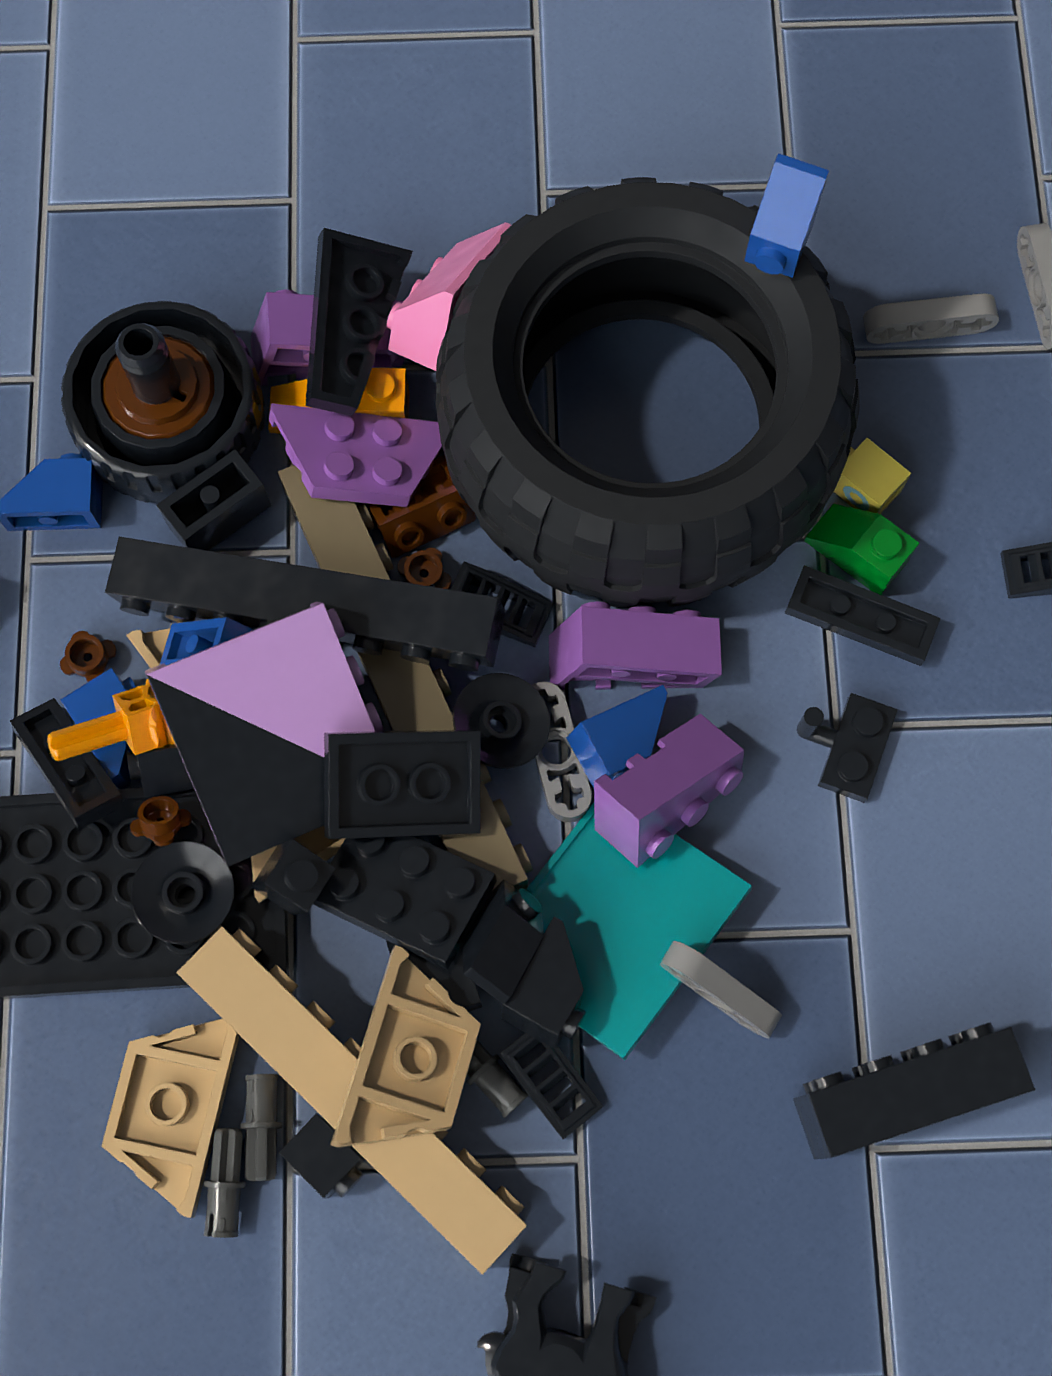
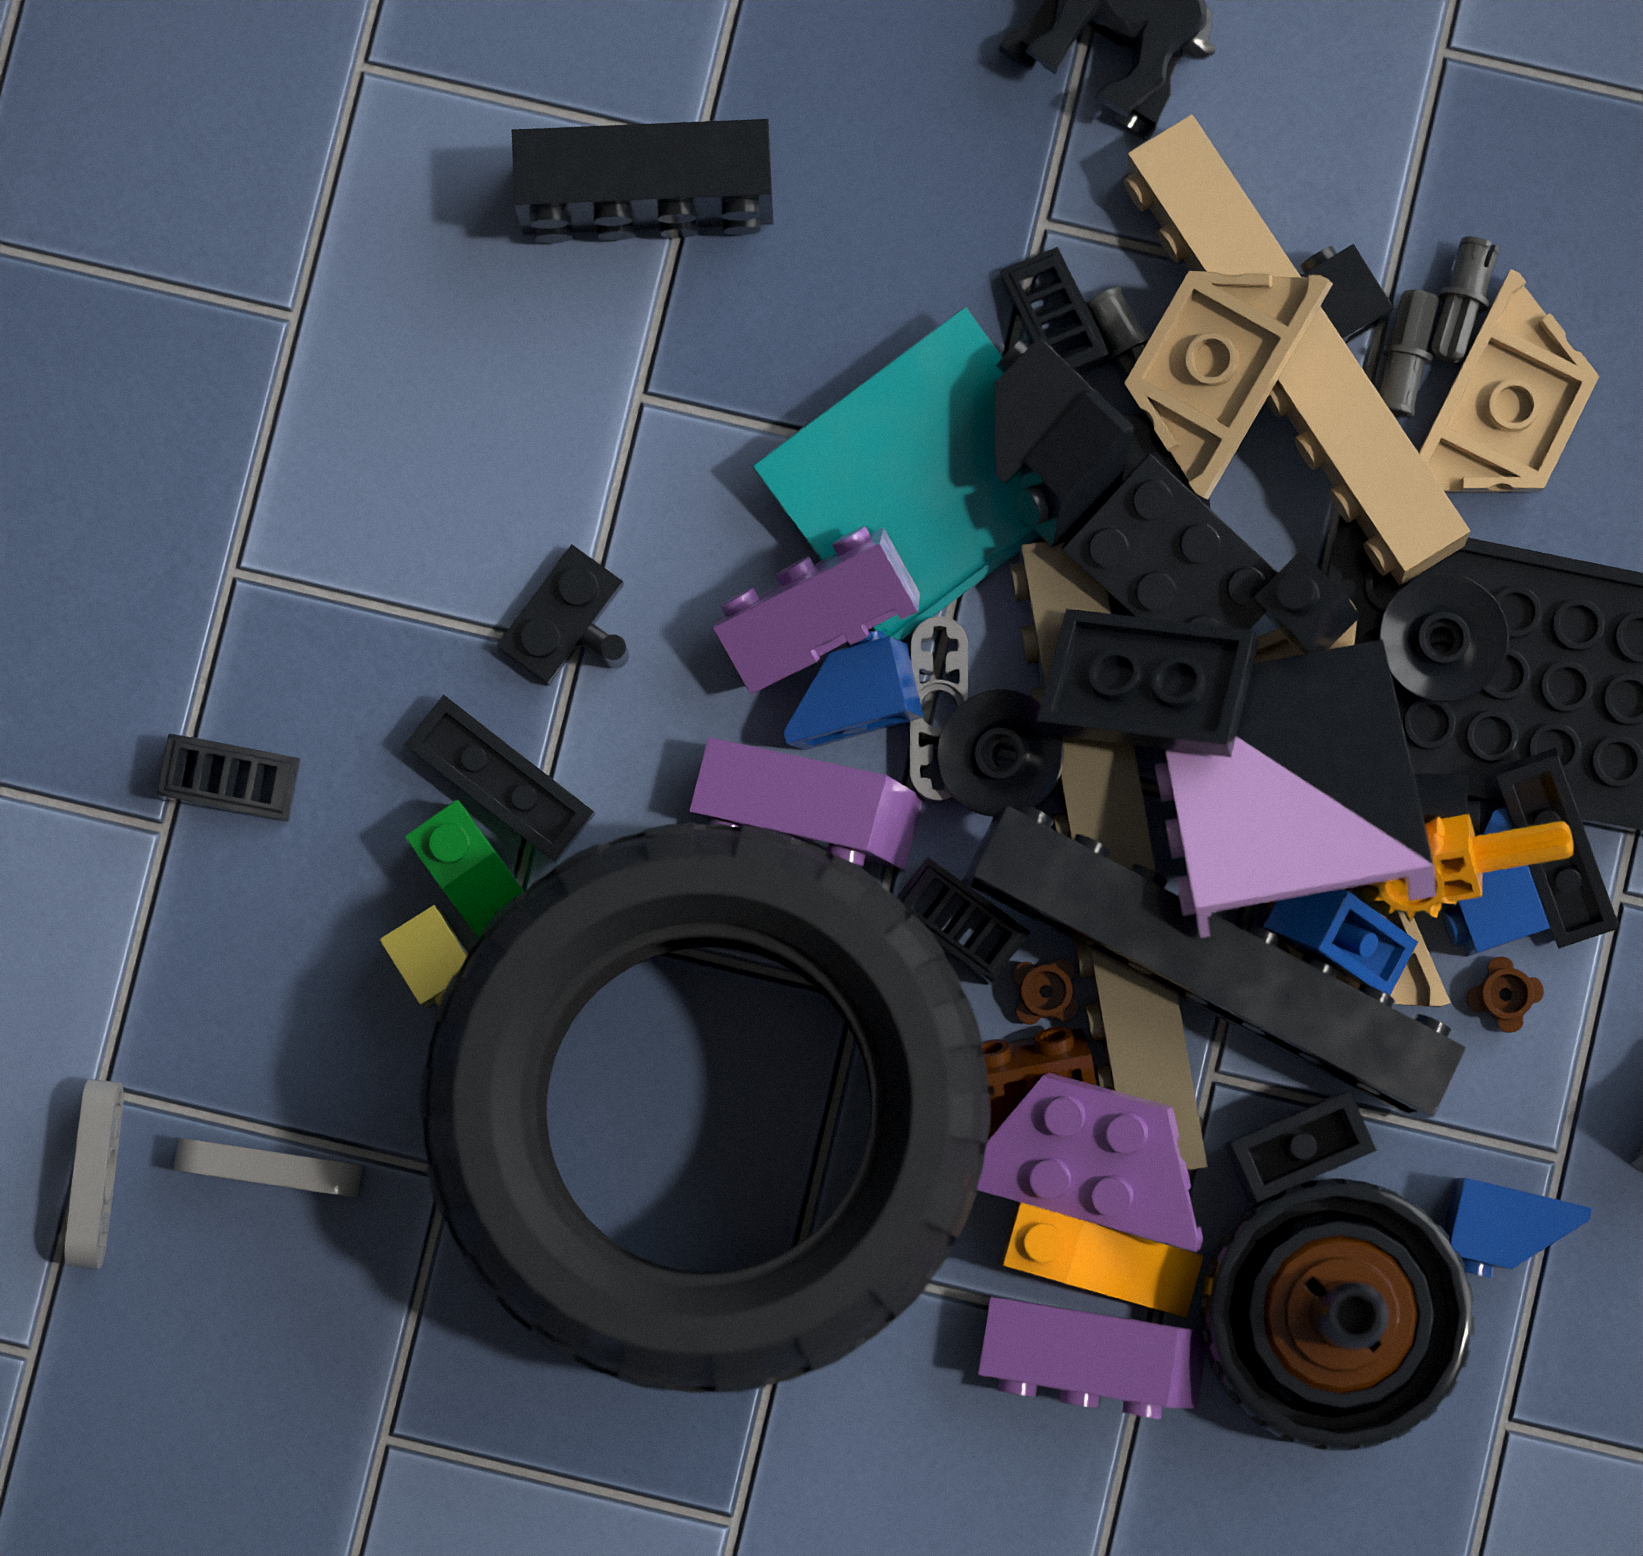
camera: 165 degrees left, 10 degrees up
(160, 820) = (1451, 753): reddish brown plate -> none
(349, 316) = (1055, 1367): black wing -> none
(427, 313) = (920, 1352): bright pink slope -> none
(720, 989) = (828, 352): light grey beam -> none
(786, 215) = (491, 1205): slope -> none

